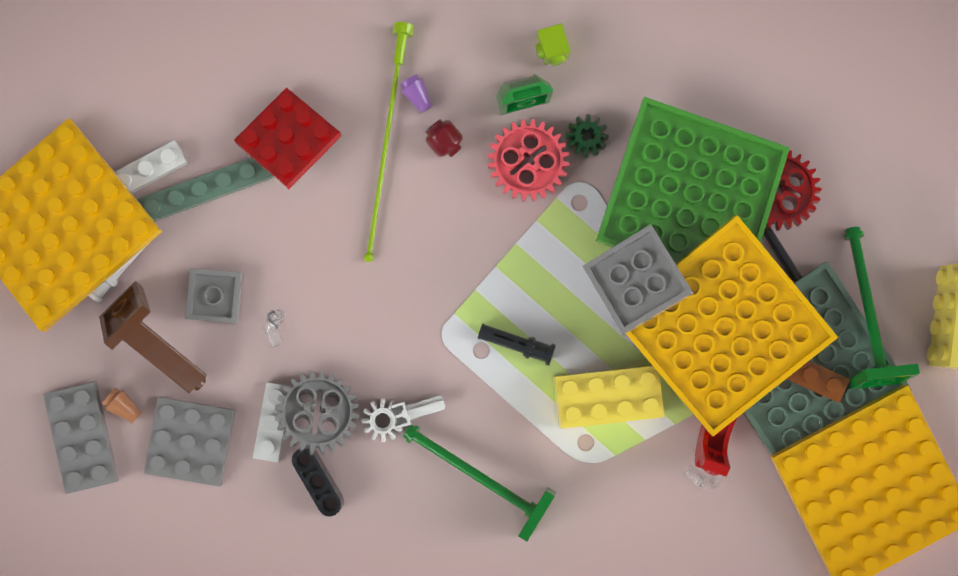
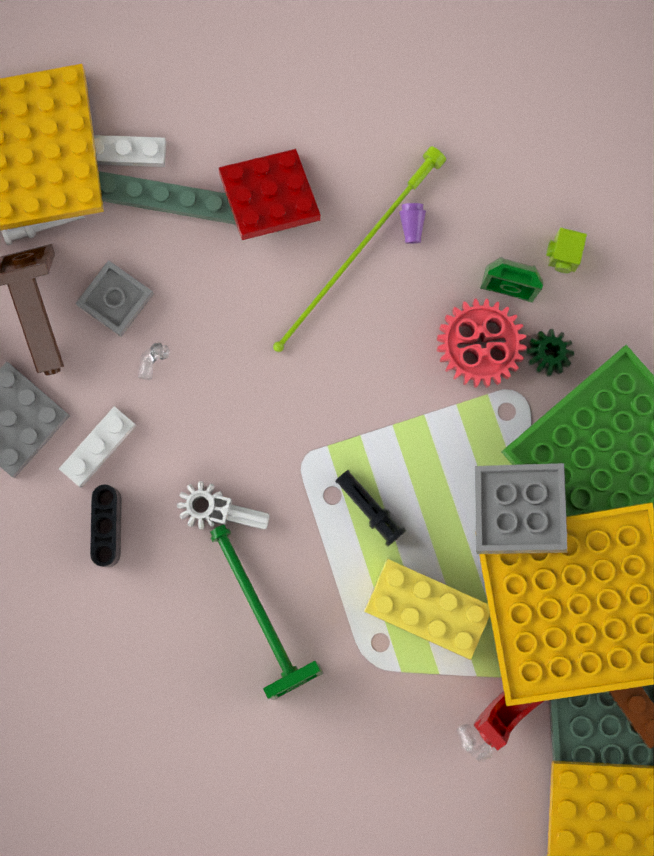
camera: 35 degrees right, 5 degrees down
(294, 409) = (123, 444): light grey gear -> none
(444, 138) = (413, 277): dark red head -> none

